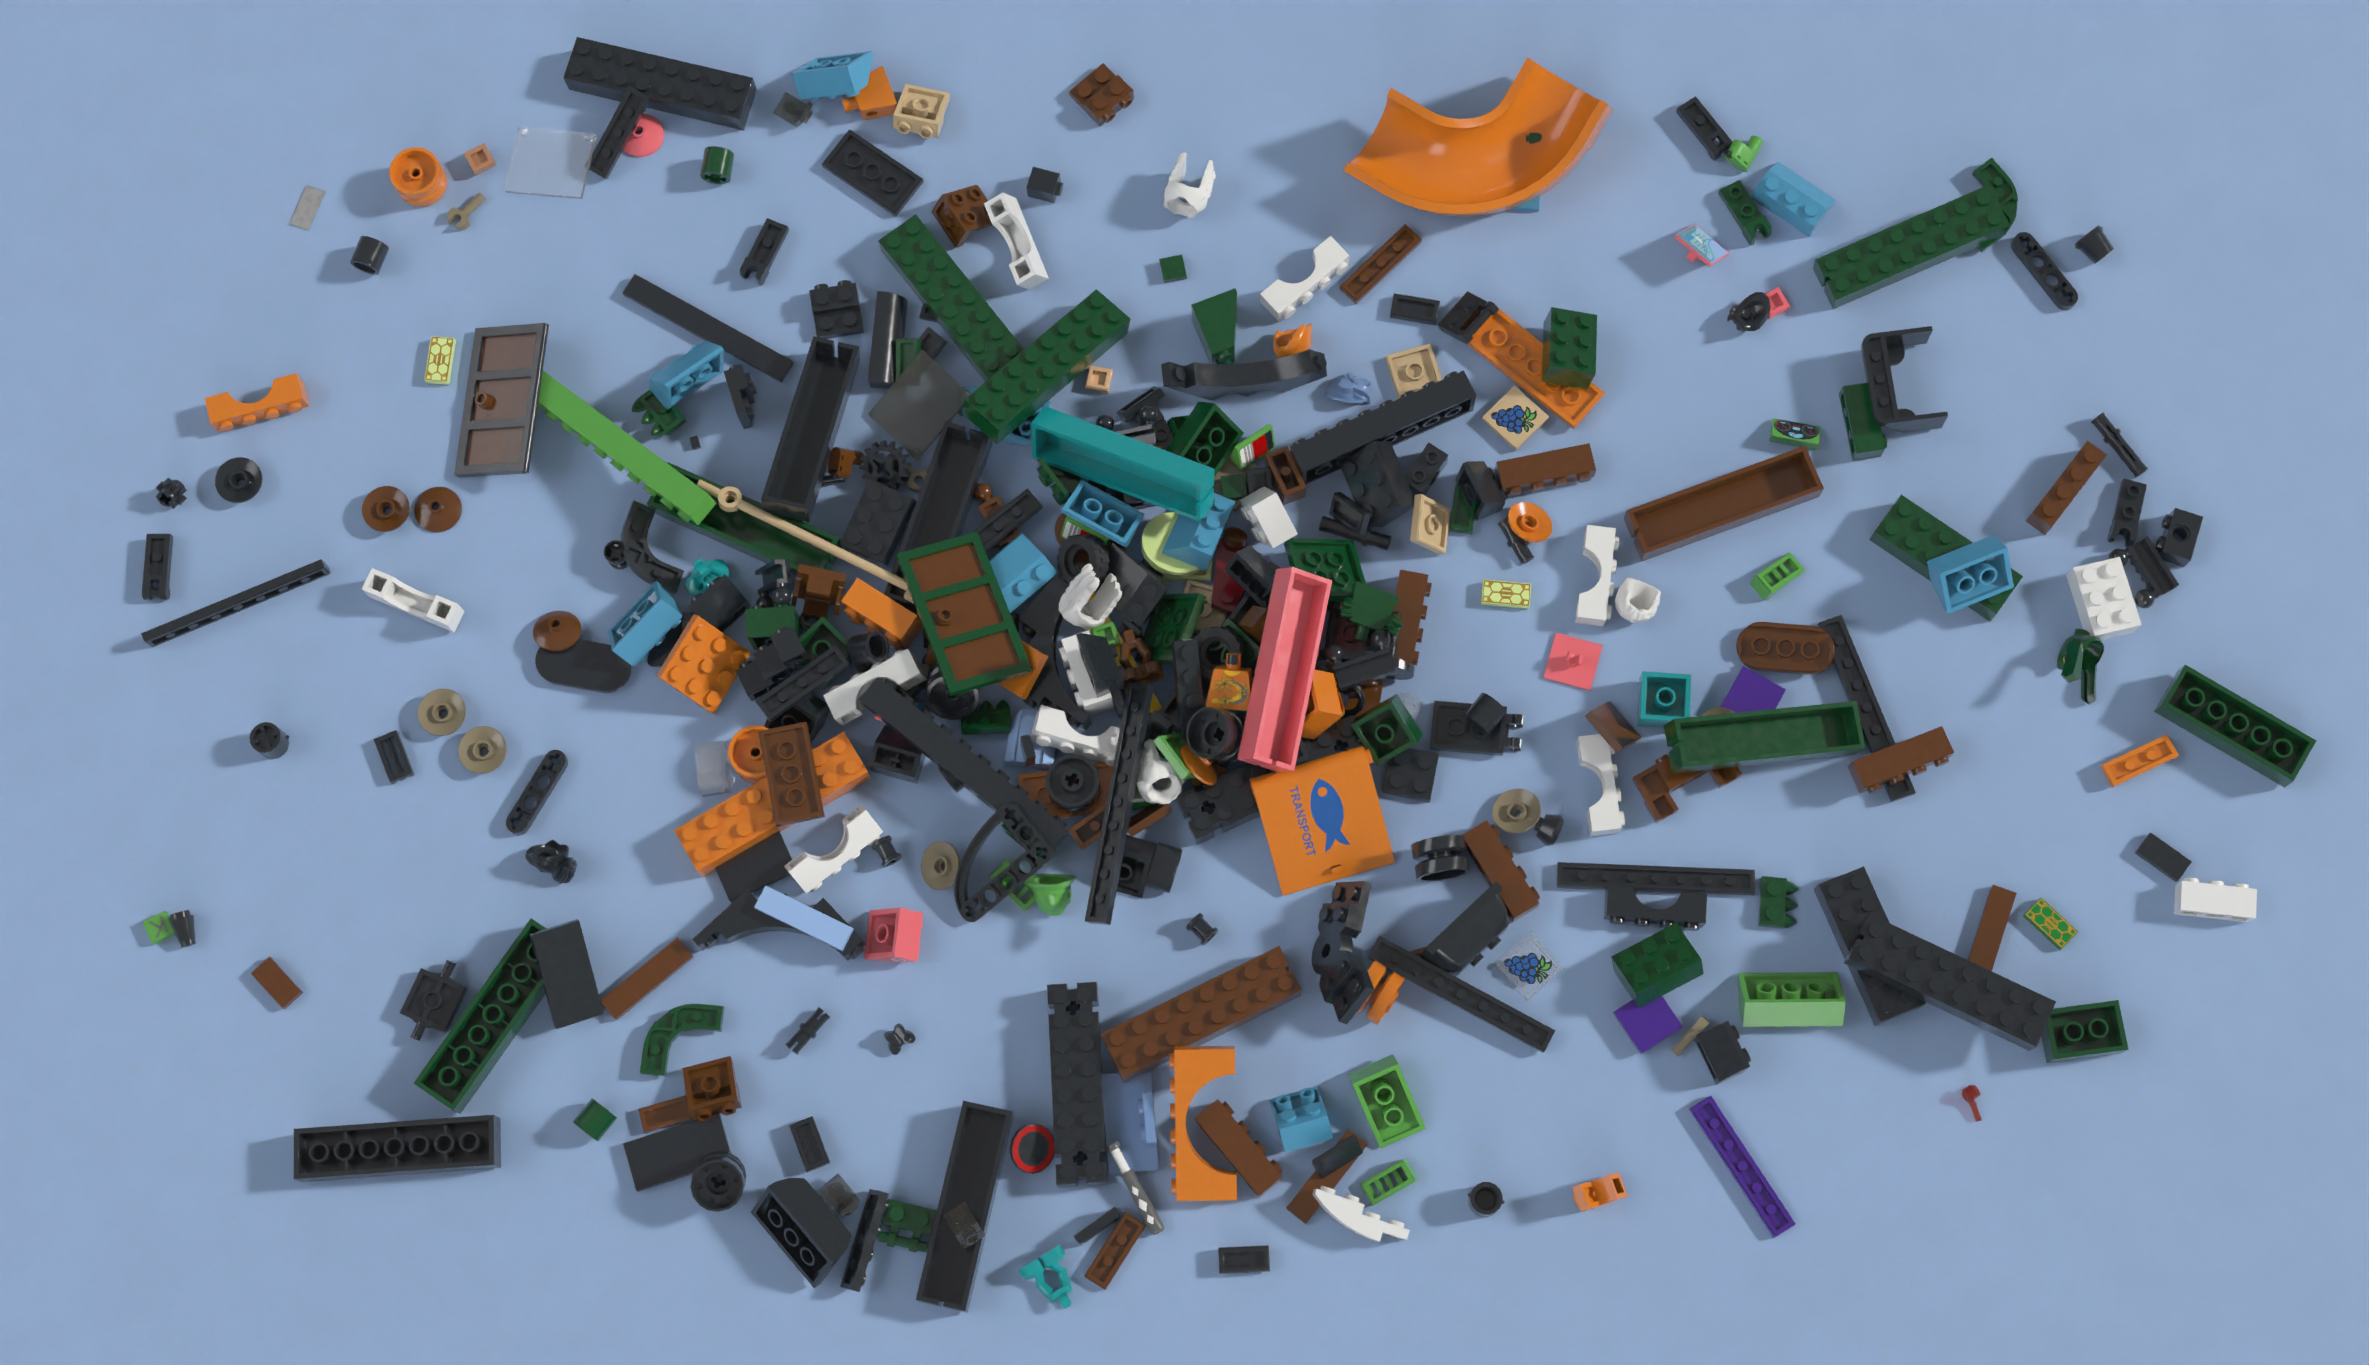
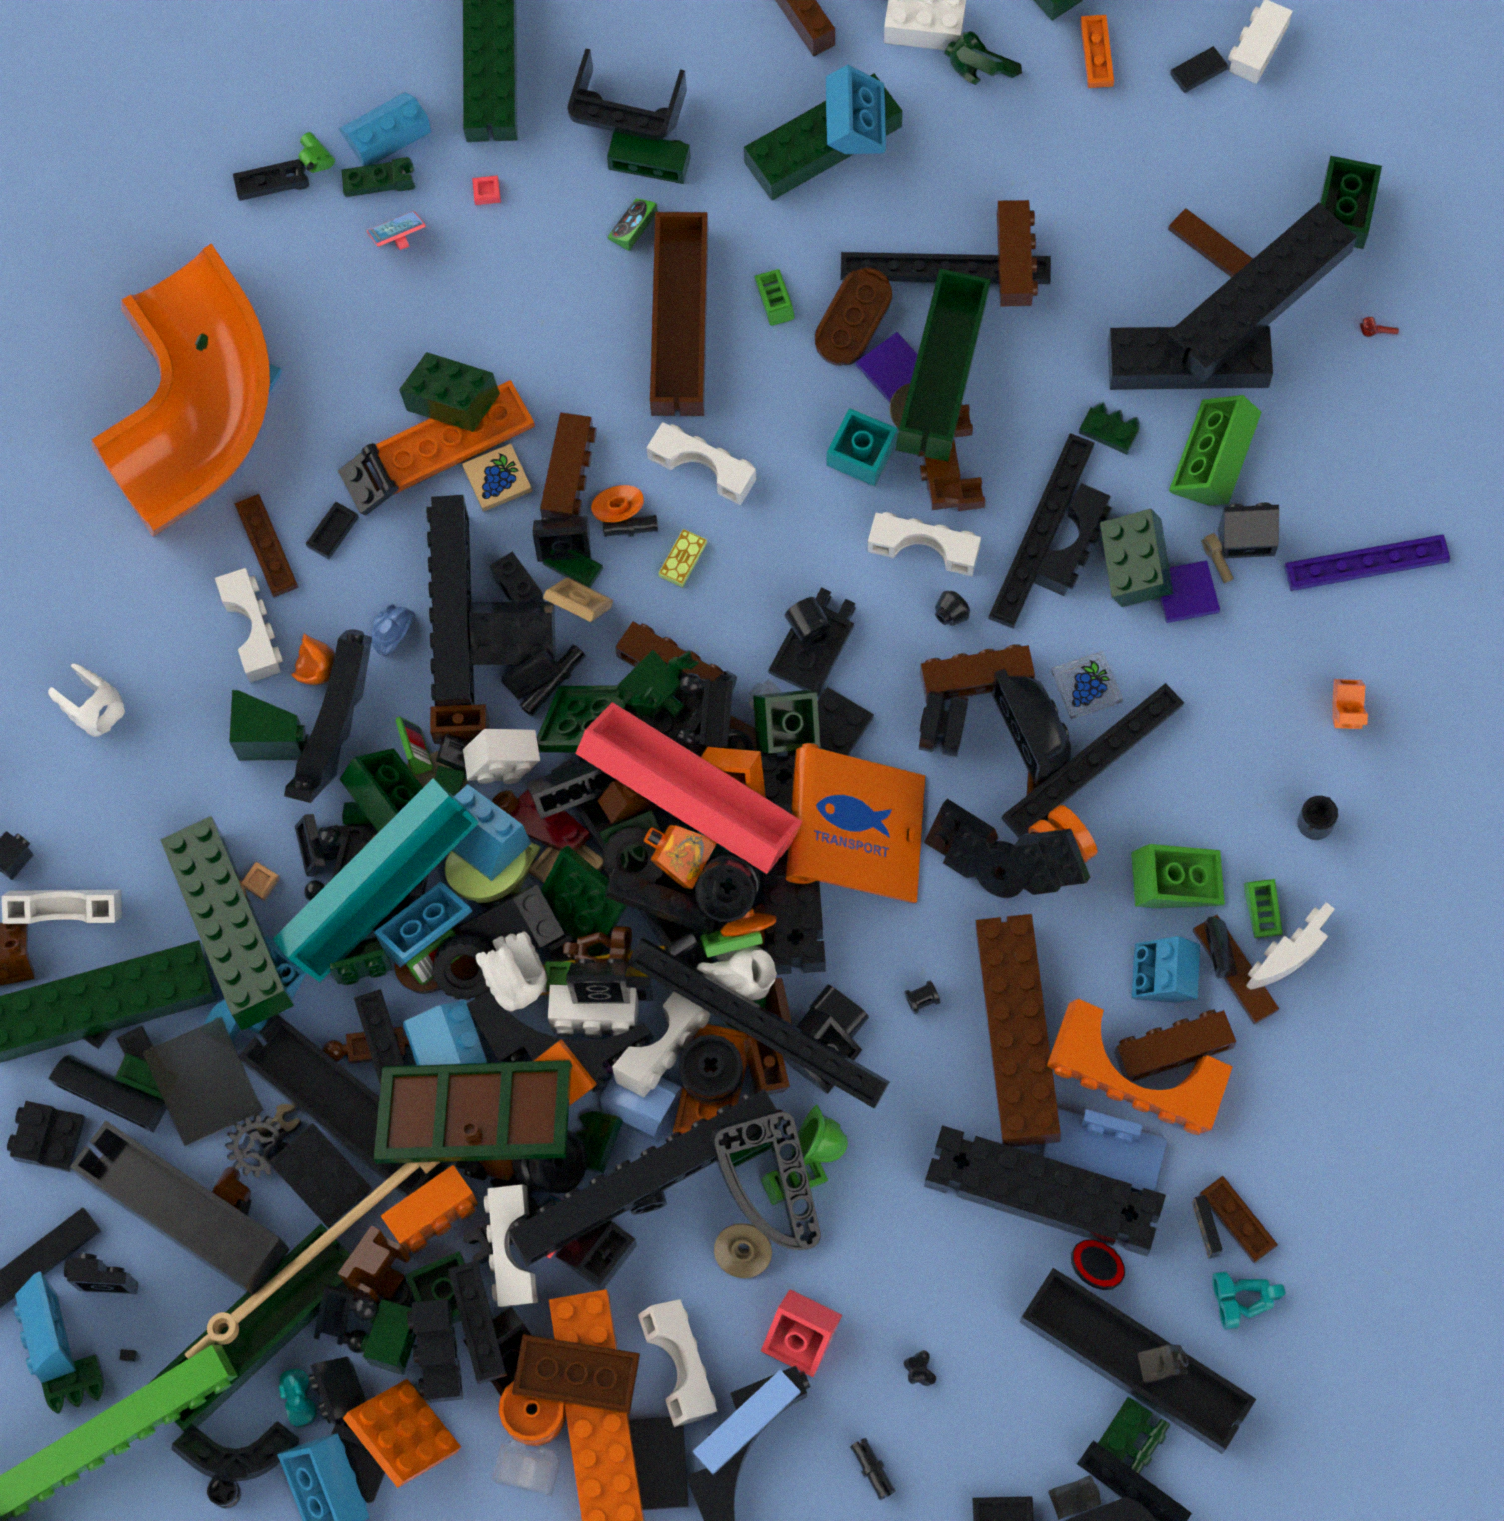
camera: 70 degrees left, 5 degrees down
(867, 648) = (466, 1235): black piece -> none
(886, 851) = (702, 1305): black bush -> none
(1027, 750) = (656, 1102): black tile -> none
(1137, 1192) = (1191, 1169): dark grey piece -> none
(1173, 268) = (170, 756): dark green tile -> none
(1244, 1259) = (1295, 1086): black plate -> none
(1412, 369) = (400, 557): tan tile -> none
(1515, 802) = (910, 627): dark tan dish -> none
(1573, 661) = (781, 522): coral piece -> none
(1613, 727) = (871, 505): reddish brown tile -> none
(1637, 600) = (747, 433): white hair -> none
(1751, 312) = (487, 212): black hat -> none
(2050, 923) = (1226, 191): green tile -> none

